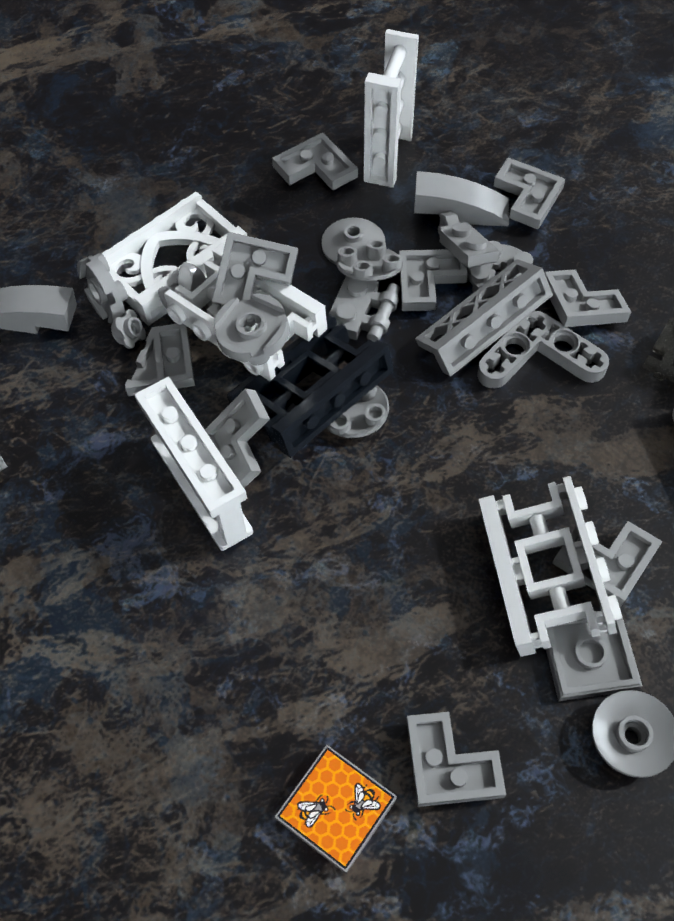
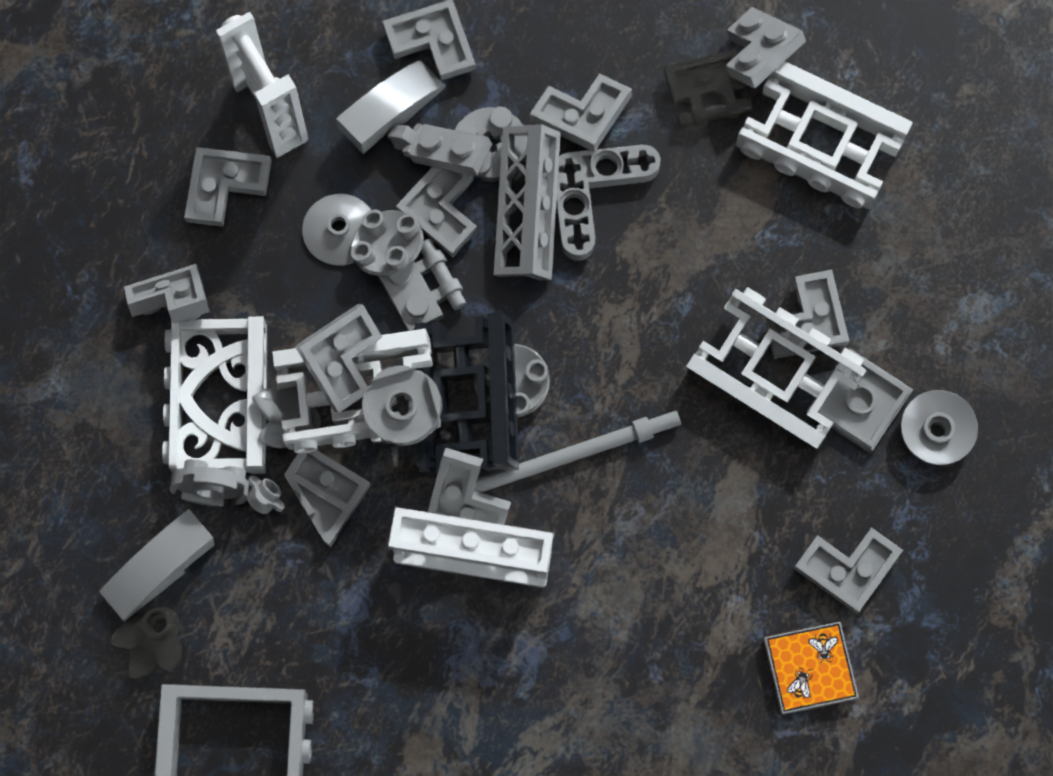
camera: 50 degrees left, 15 degrees up
(214, 186) = (178, 290): none -> light grey plate
(402, 516) = (640, 430): none -> light grey bar

